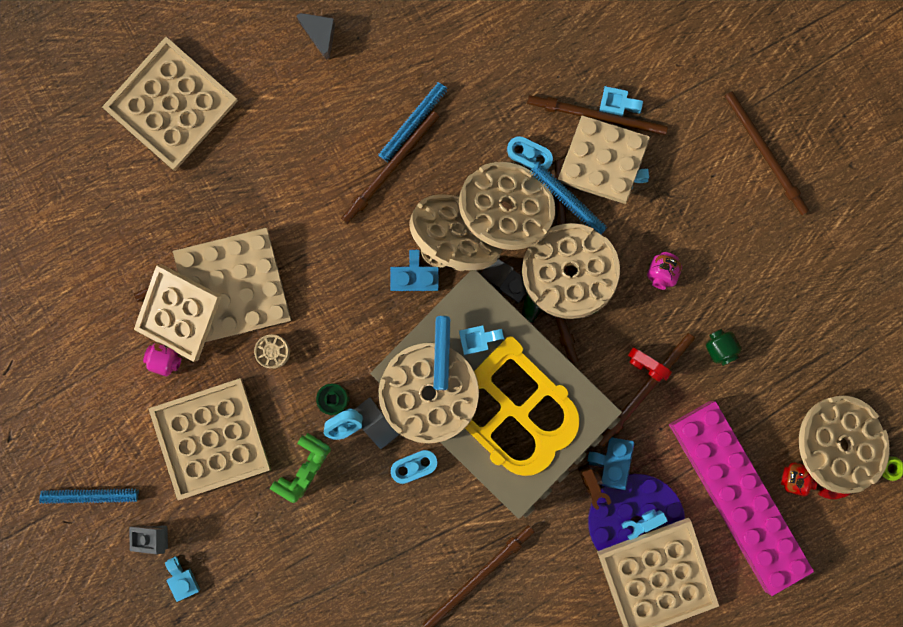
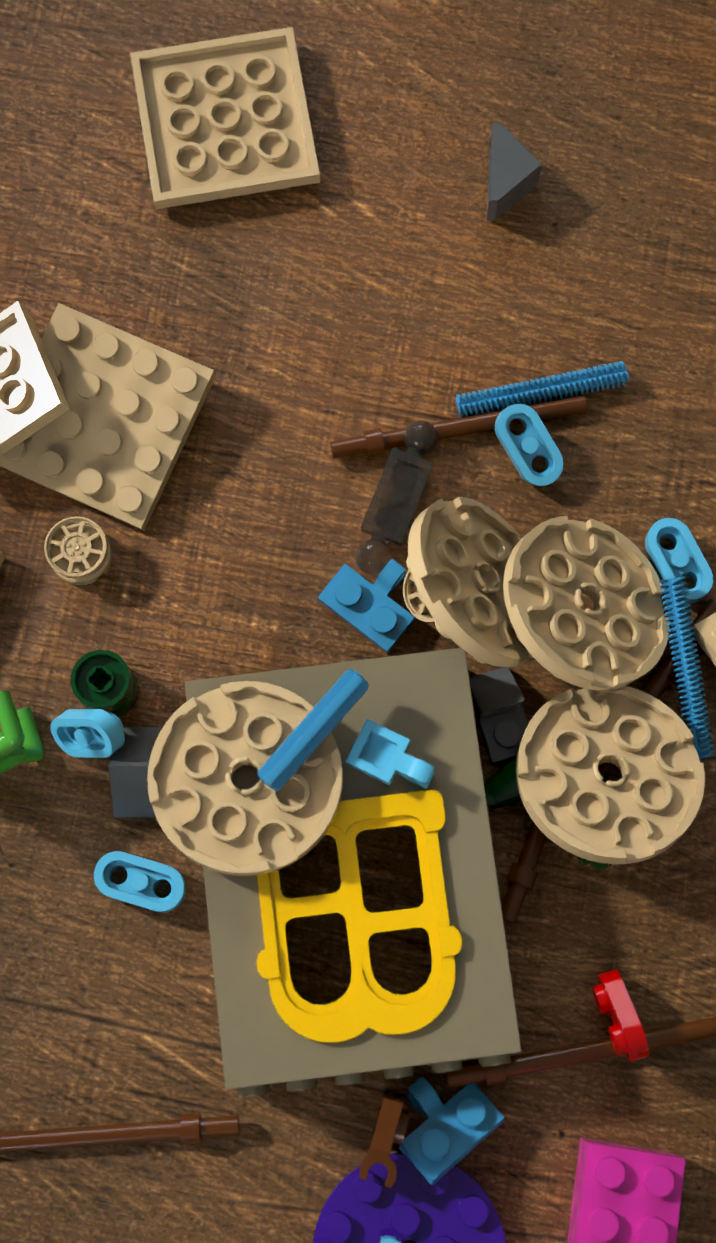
camera: 45 degrees right, 10 degrees down
(389, 220) = (396, 497): none -> clear smoke plate
(427, 152) = (530, 443): none -> medium azure plate

